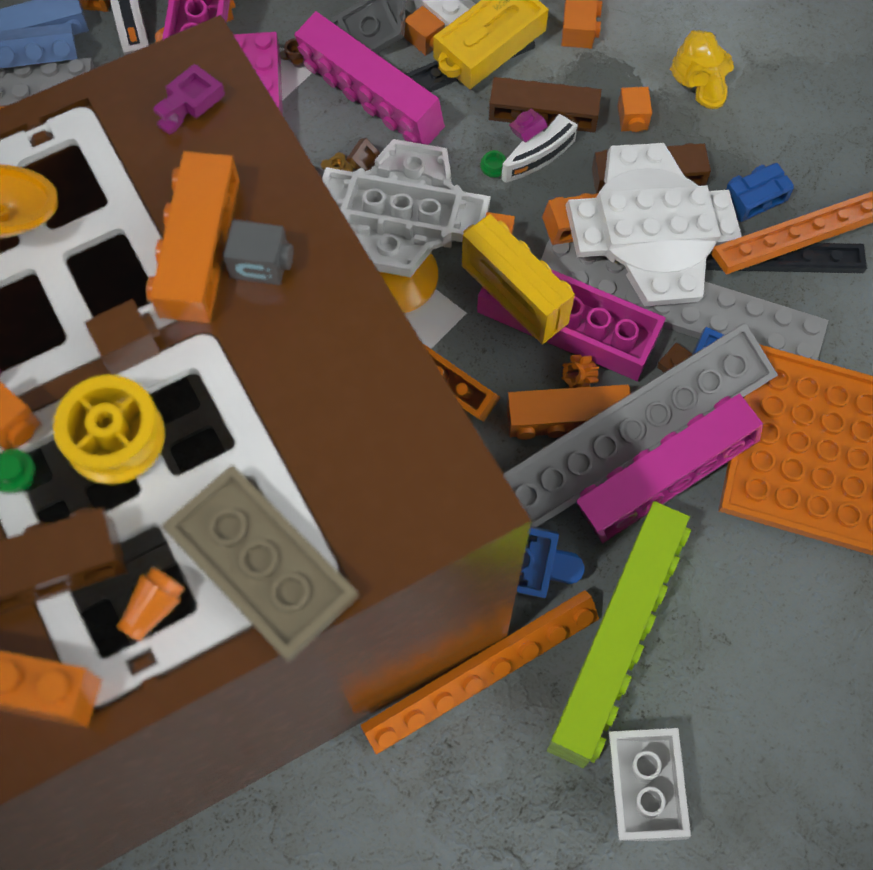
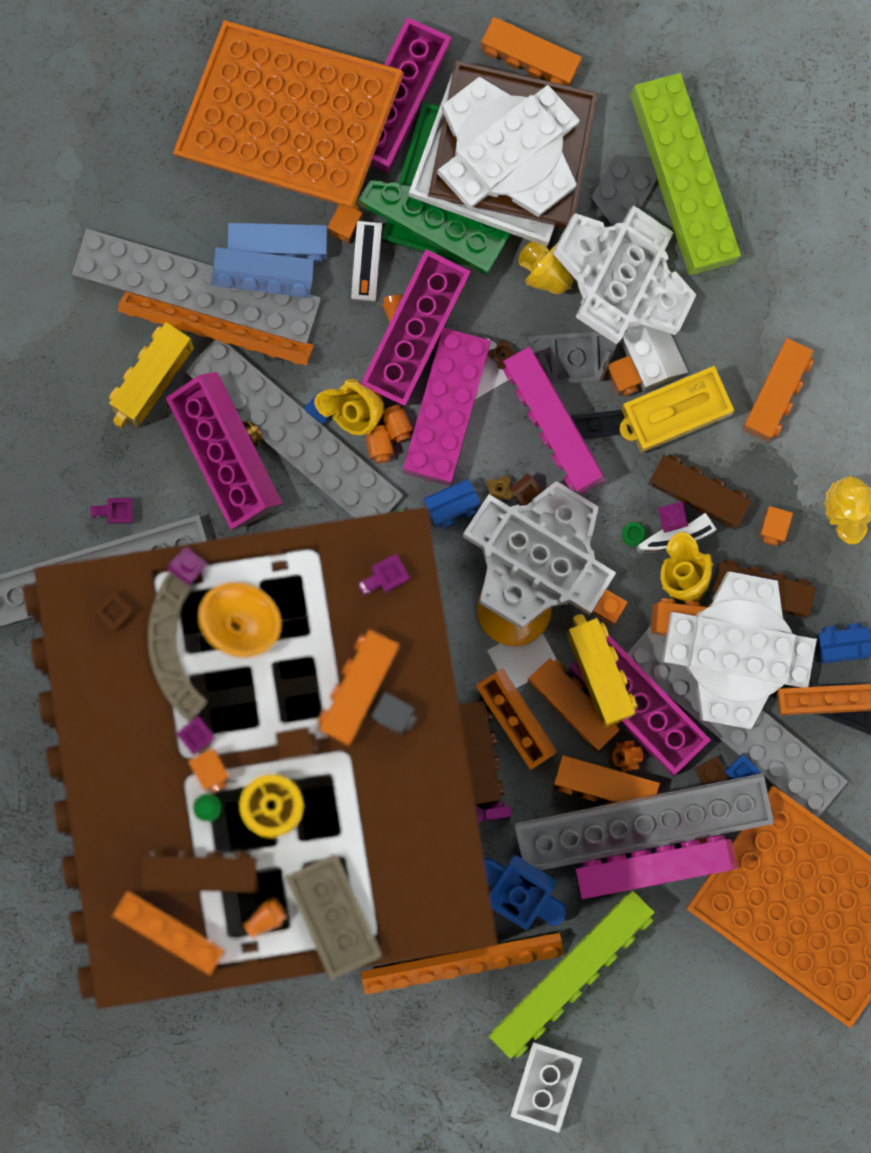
camera: 15 degrees right, 15 degrees up
(497, 341) = (571, 703): none -> orange brick
(565, 169) = (687, 571): none -> yellow head

